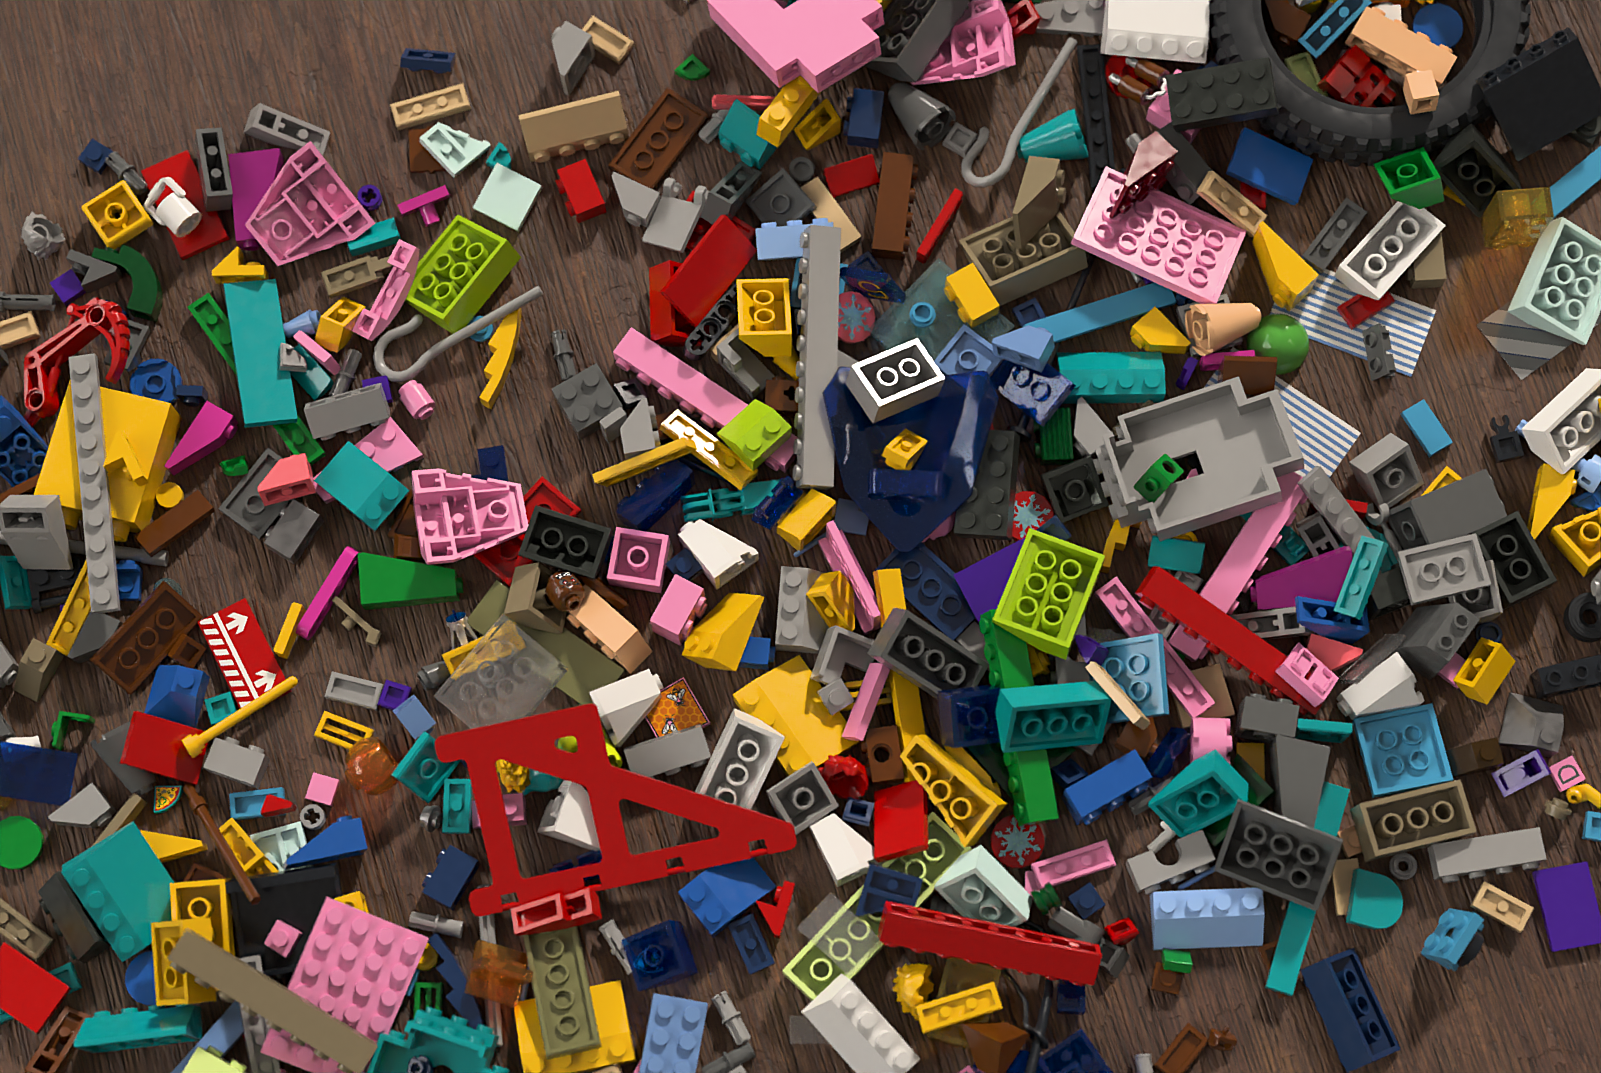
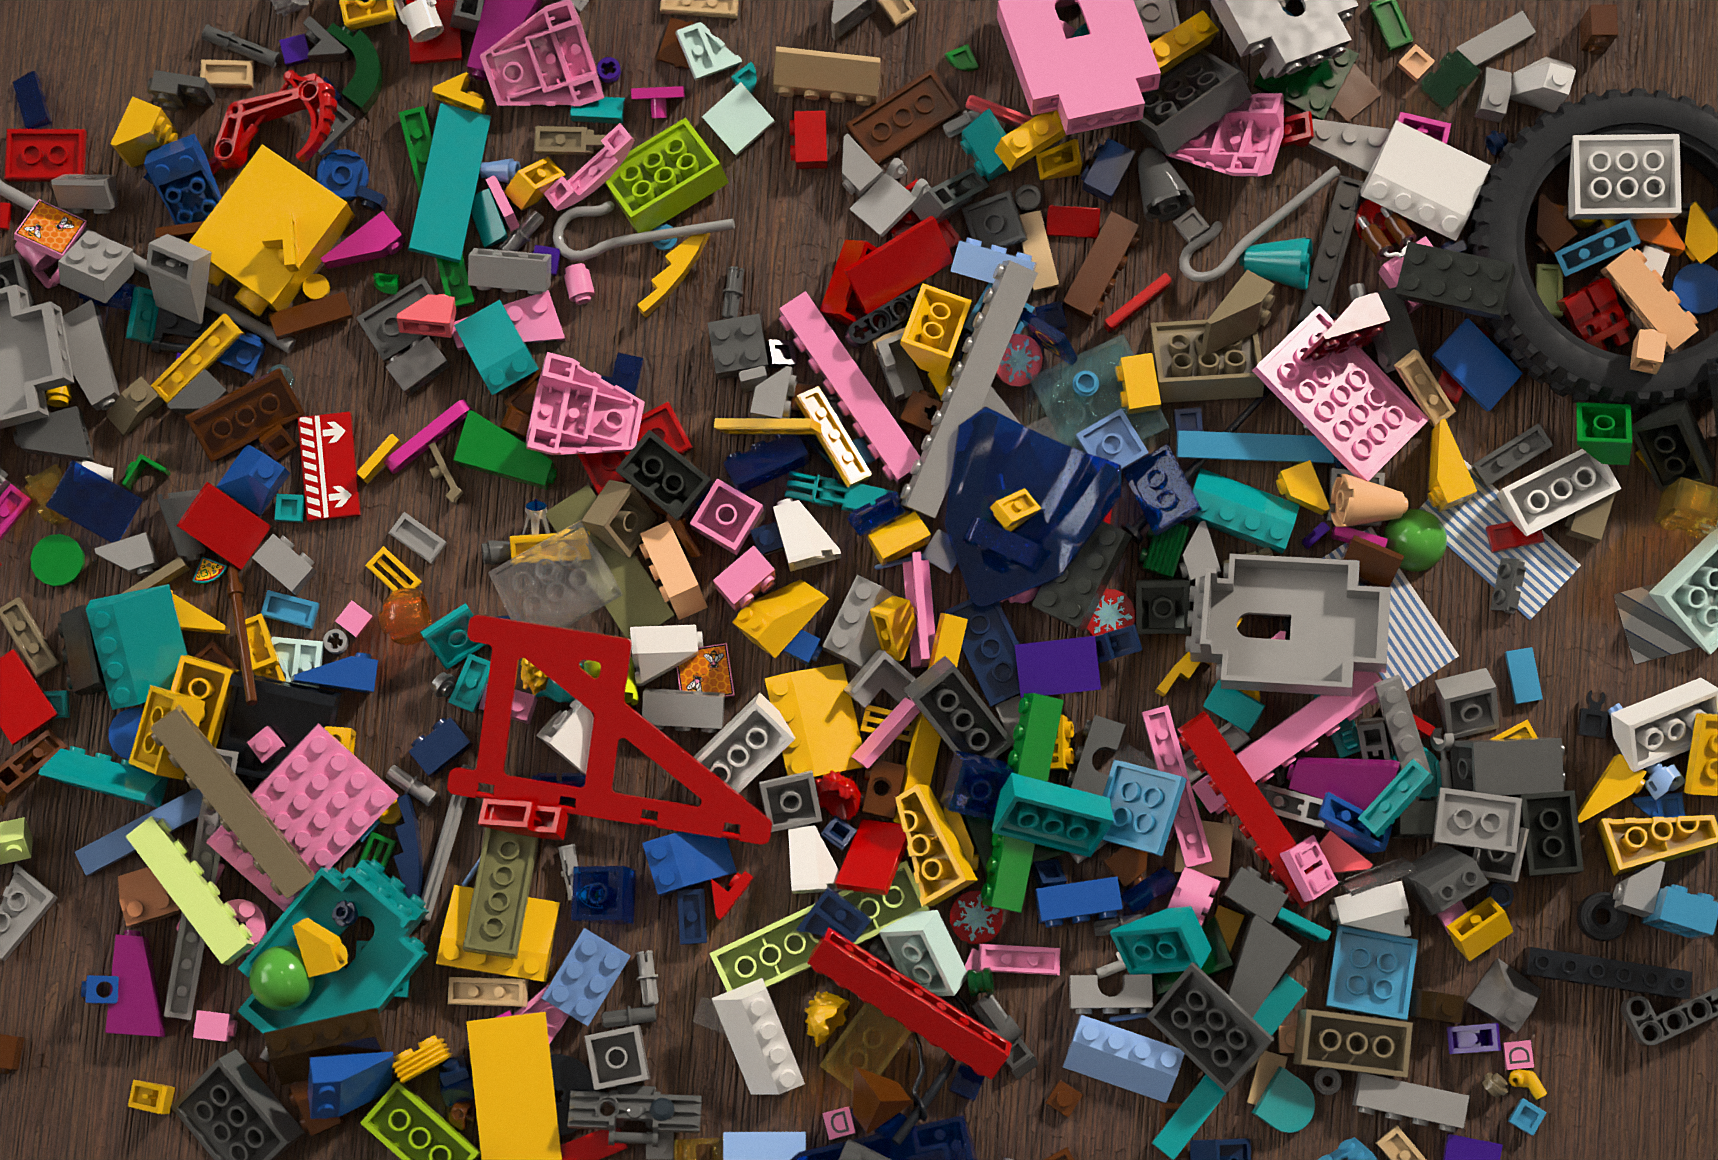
camera: 20 degrees right, 5 degrees up
(94, 484) = (248, 252): light grey plate -> none
(196, 742) = (253, 532): yellow piece -> none
(276, 806) = (305, 619): red slope -> none
(291, 360) = (475, 200): light grey tile -> none
(393, 695) = (453, 557): dark purple tile -> none
(414, 717) = (463, 585): medium blue brick -> none
(497, 973) = (449, 853): clear orange bracket -> none
(565, 591) = (645, 521): reddish brown head -> none
(755, 433) = (881, 439): lime slope -> none
(835, 696) = (860, 716): light grey plate -> none
(839, 934) = (775, 941): clear piece -> none
(895, 380) = (1031, 440): light grey brick -> none
(958, 1007) = (857, 1051): yellow tile -> none
(1025, 347) = (1169, 454): medium blue slope -> none
(1048, 592) = (1096, 697): lime slope -> none
(1086, 901) = (1018, 997): dark blue plate -> none
(1091, 649) = (1115, 767): dark purple slope -> none
(1118, 695) = (1121, 819): tan tile -> none
(1121, 931) = (1039, 1039): red slope -> none
(1157, 479) = (1242, 630): green bracket -> none
(1176, 960) = (1079, 1086): green tile -> none

